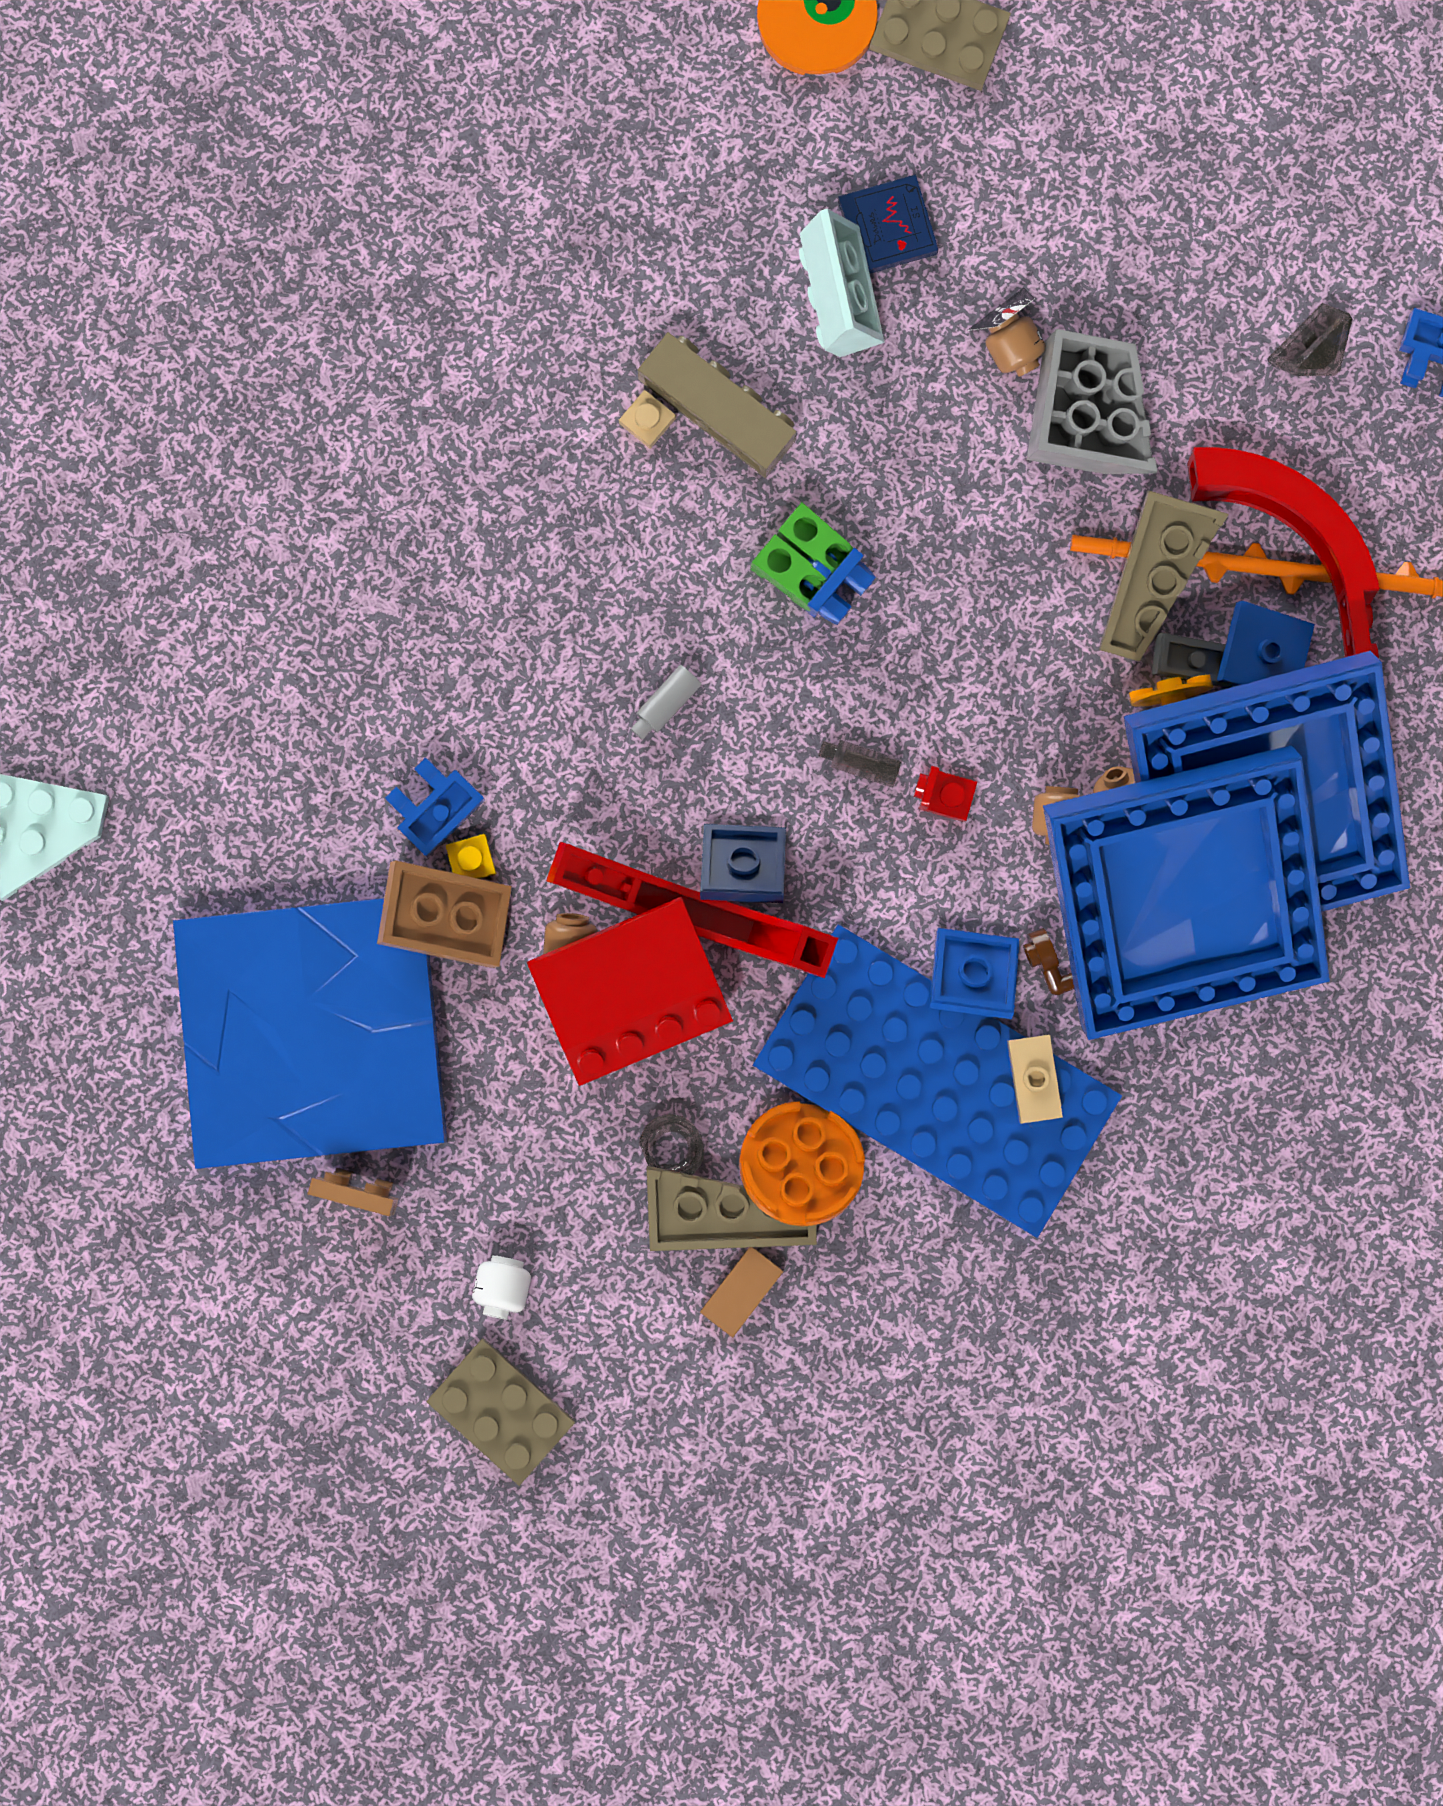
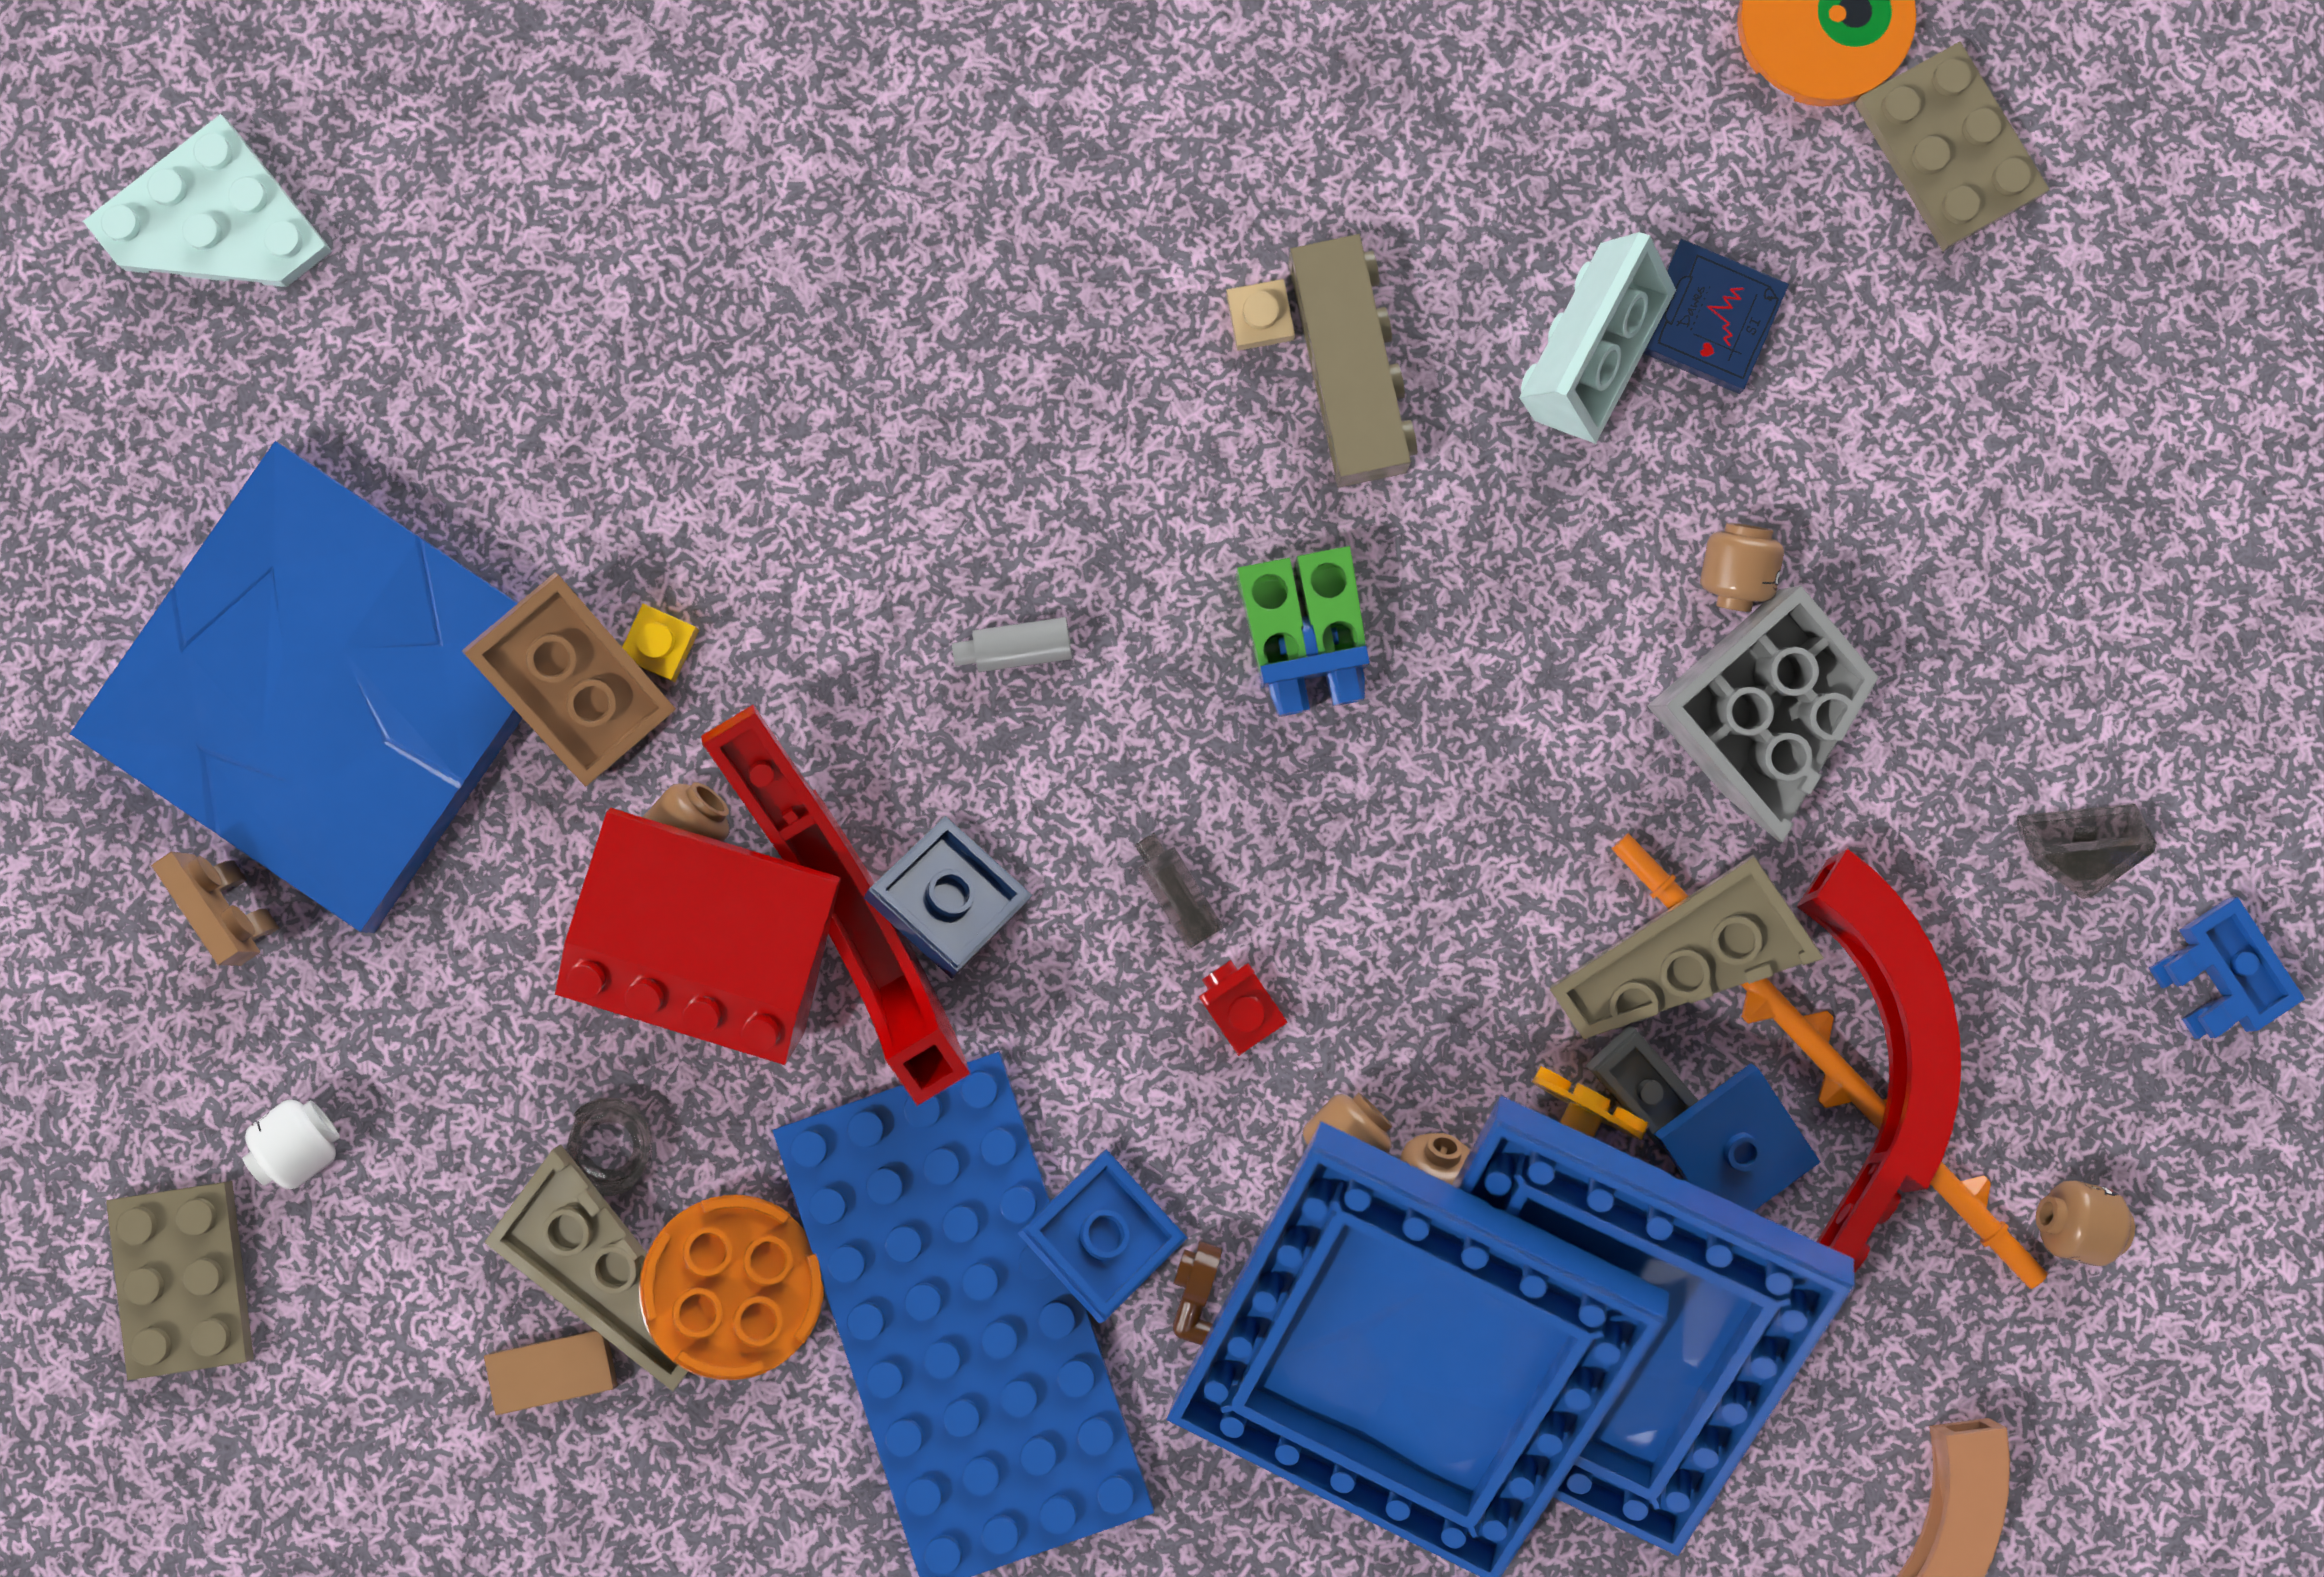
camera: 45 degrees right, 0 degrees up
(440, 812) = (669, 562): blue plate -> none
(1005, 310) = (1761, 518): black sticker -> none
(1034, 1079) = (1067, 1414): tan plate -> none

